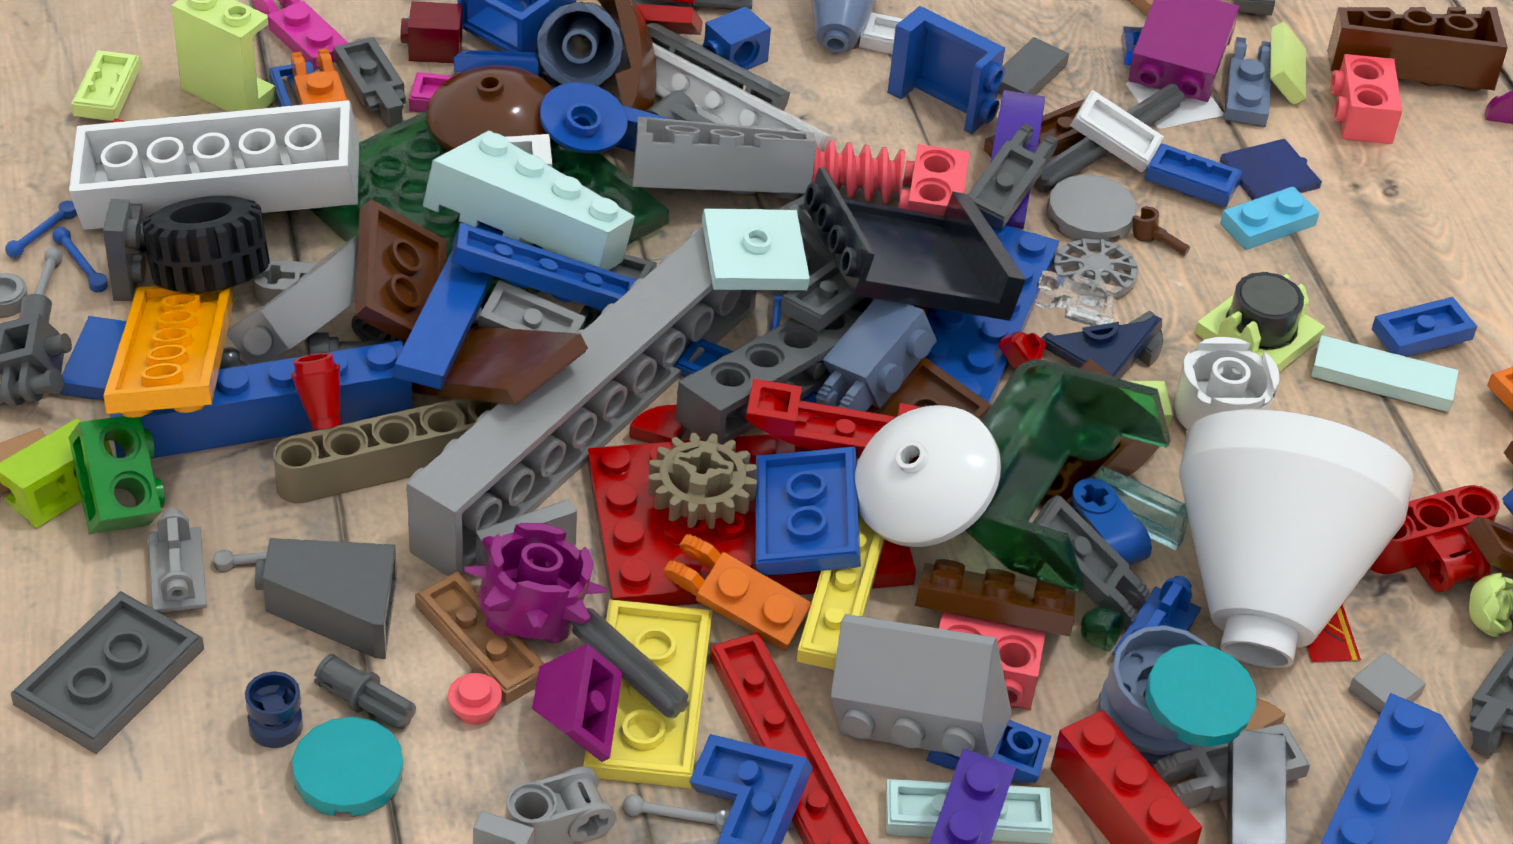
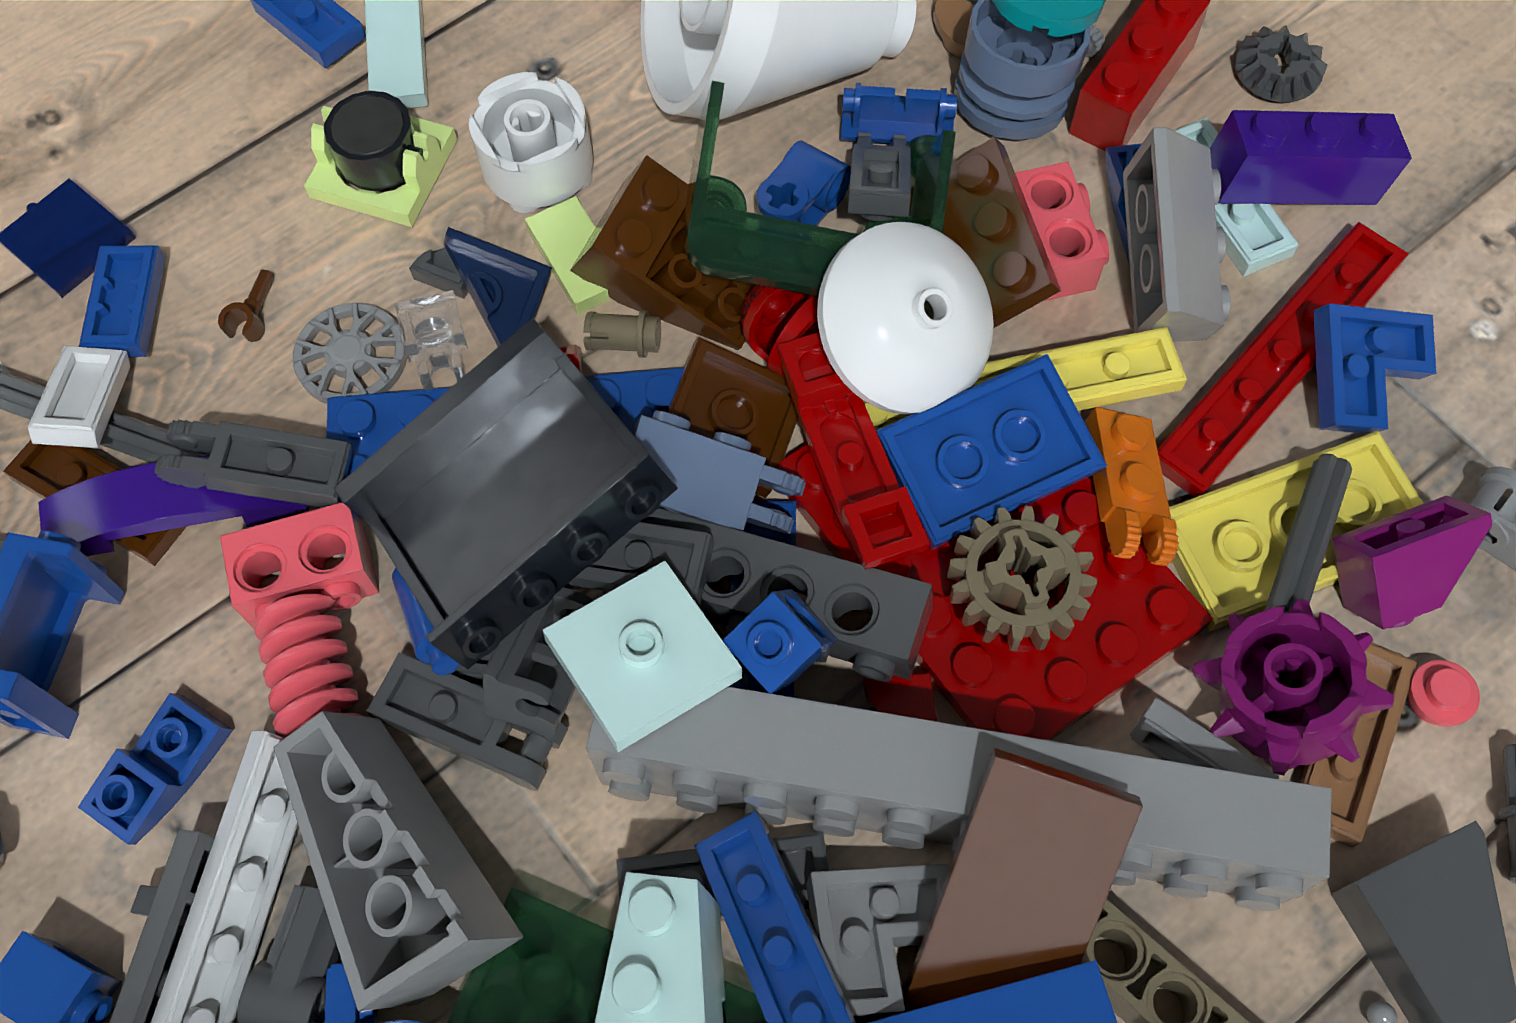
camera: 110 degrees left, 20 degrees up
(634, 805) = (1438, 474): light grey hinge -> none
(735, 336) = (779, 640): none -> blue brick
(840, 112) = (152, 777): none -> blue slope
(1091, 208) = (237, 383): light grey tile -> none
(1160, 514) = (750, 156): clear light blue tile -> none
(1269, 218) = (166, 209): medium azure plate -> none

